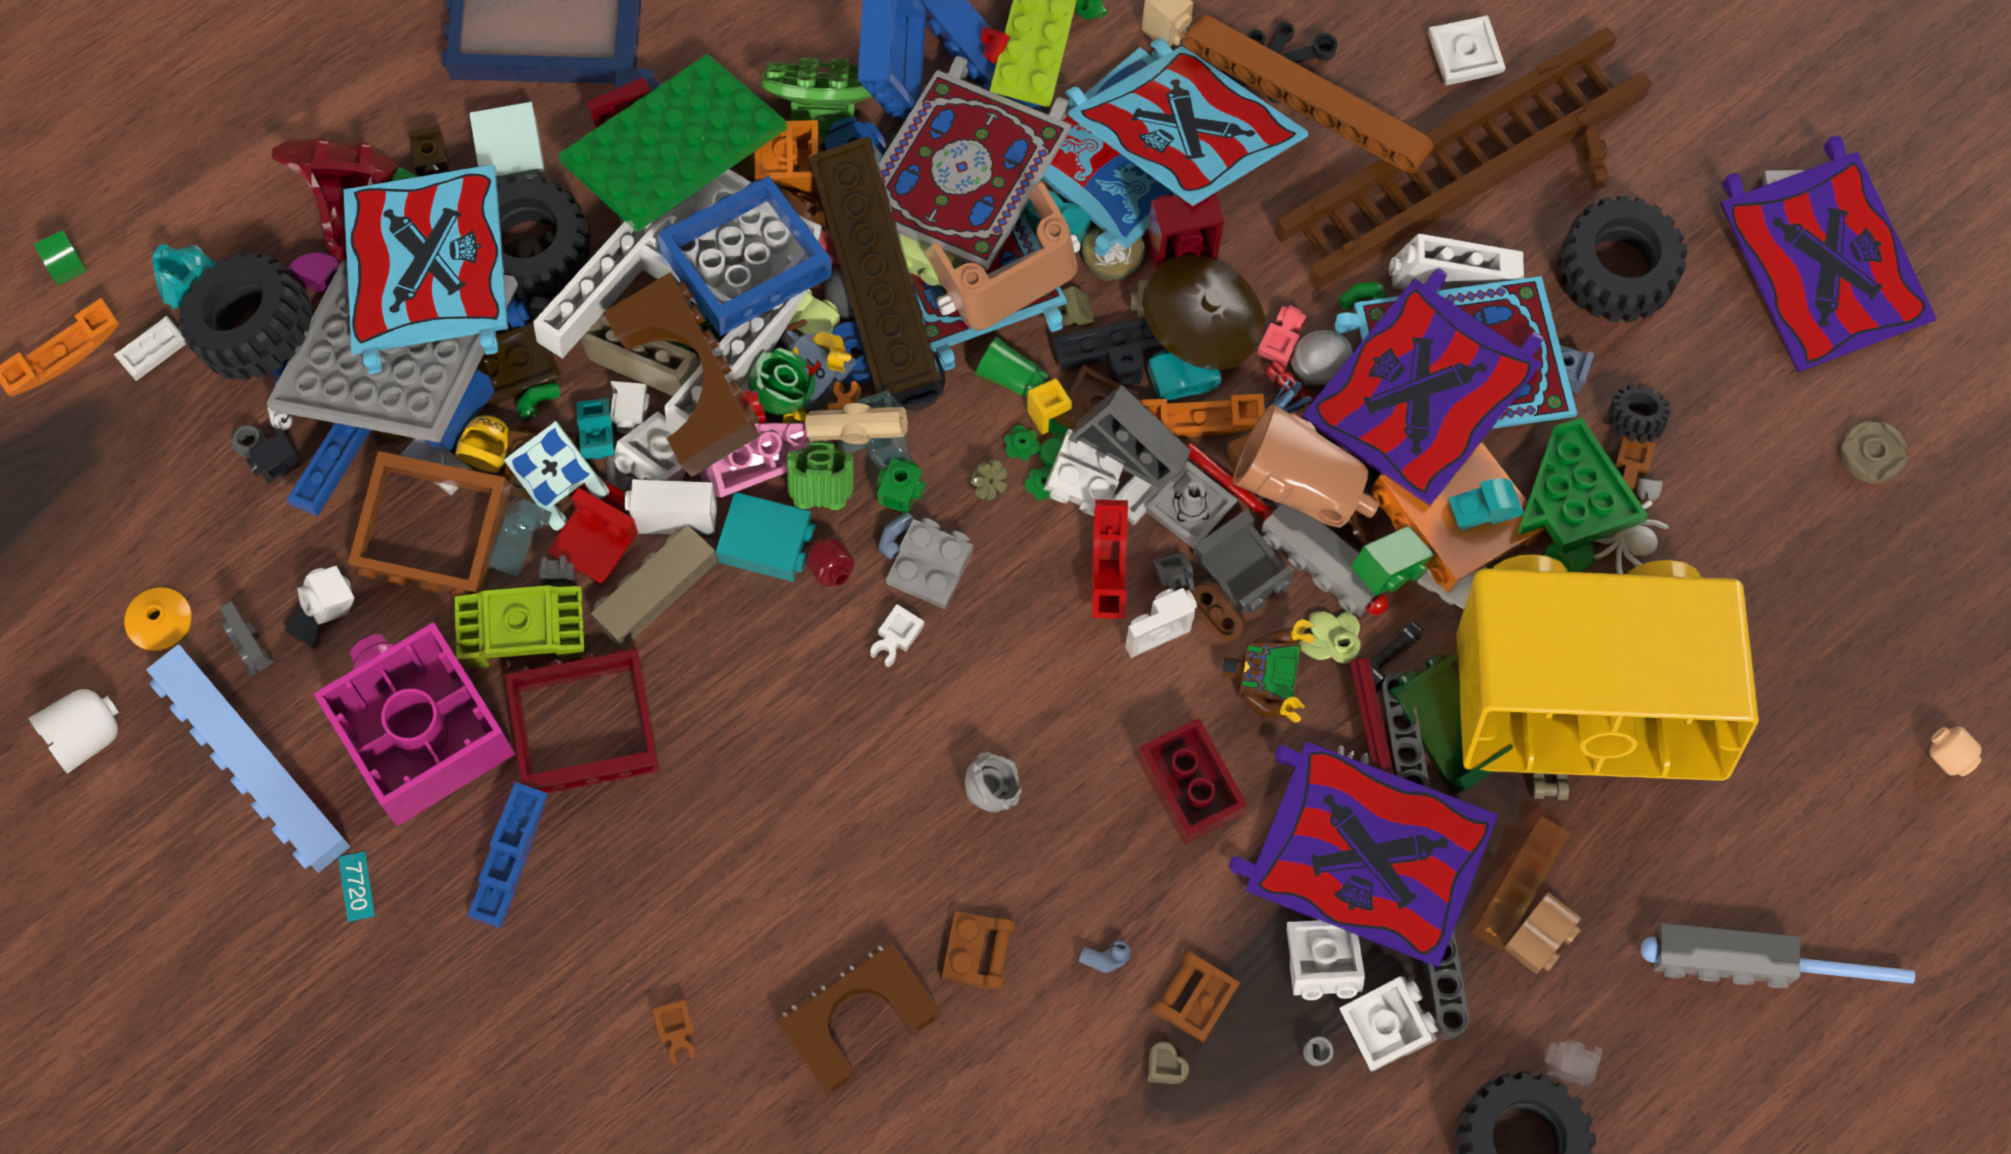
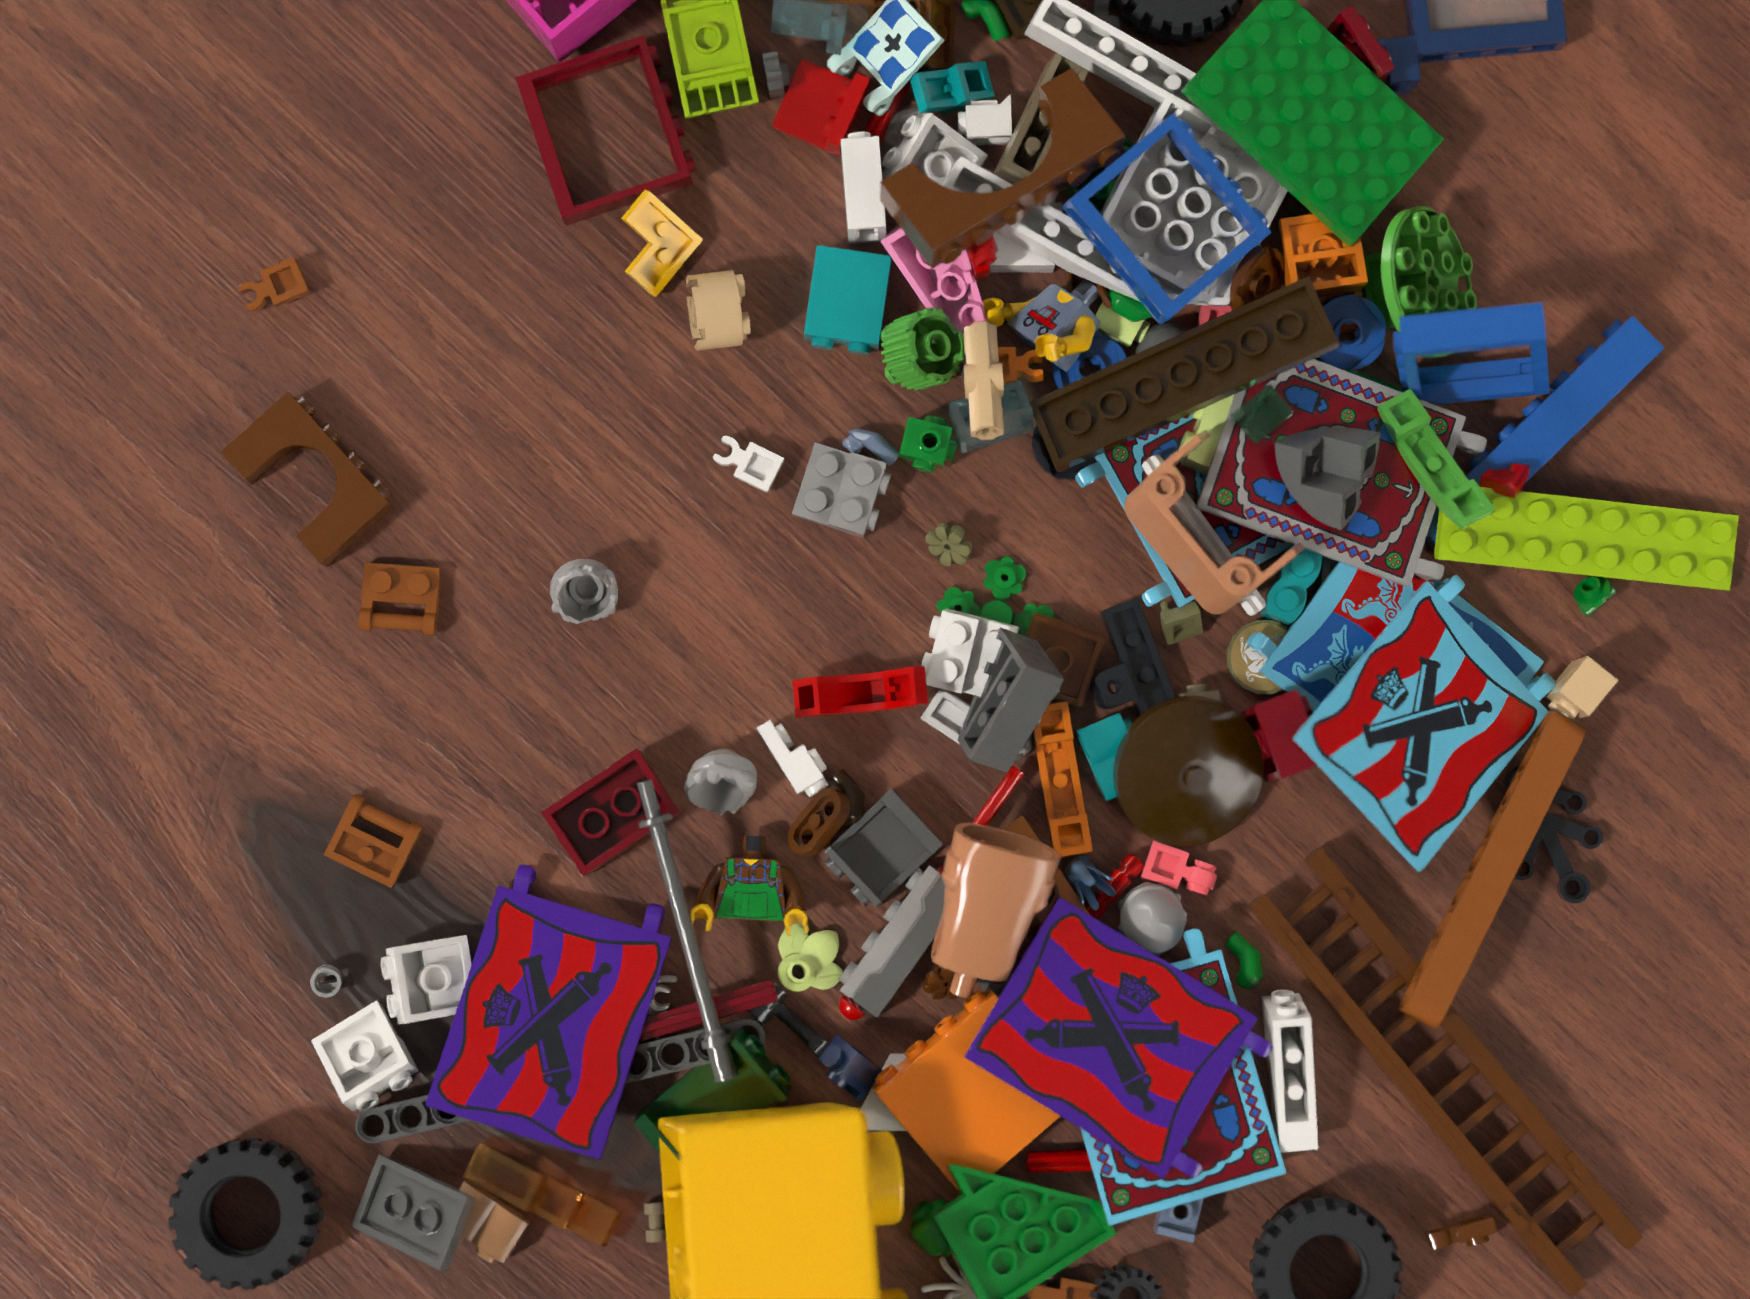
camera: 85 degrees right, 15 degrees up
(508, 855) = (444, 75): blue slope -> none
(654, 586) = (772, 183): dark tan brick -> none
(691, 679) = (668, 242): none -> yellow plate
(759, 641) = (716, 310): none -> tan brick
(781, 382) = (1025, 287): green cylinder -> none
(810, 305) = (1128, 307): none -> green arm
(829, 562) = (825, 376): dark red head -> none
(916, 207) = (1262, 414): none -> clear green panel
(970, 165) = (1327, 470): none -> dark grey brick
(975, 92) = (1431, 462): none -> bright green slope
(1010, 369) = (1088, 554): green plant -> none
(1046, 403) = (1048, 601): yellow panel -> none
(1108, 960) = (404, 740): sand blue arm -> none
(1166, 1065) = (296, 817): dark tan tile -> none
(1173, 685) = (721, 781): none -> light grey hair
(1174, 571) = (860, 769): dark grey plate -> none
(1192, 507) = (948, 782): light grey plate -> none
(1392, 561) = (890, 1018): brick -> none
(1399, 708) = (715, 1038): none -> dark grey bar
(1430, 608) = (849, 1067): none -> dark blue brick
(1466, 50) = (1593, 1064): white plate -> none
(1491, 502) = (973, 1122): teal brick -> none
(1518, 454) = (1058, 1161): none -> red axle
(1532, 990) = (413, 1212): none -> dark grey plate
(1573, 1062) = (344, 1263): clear brick -> none

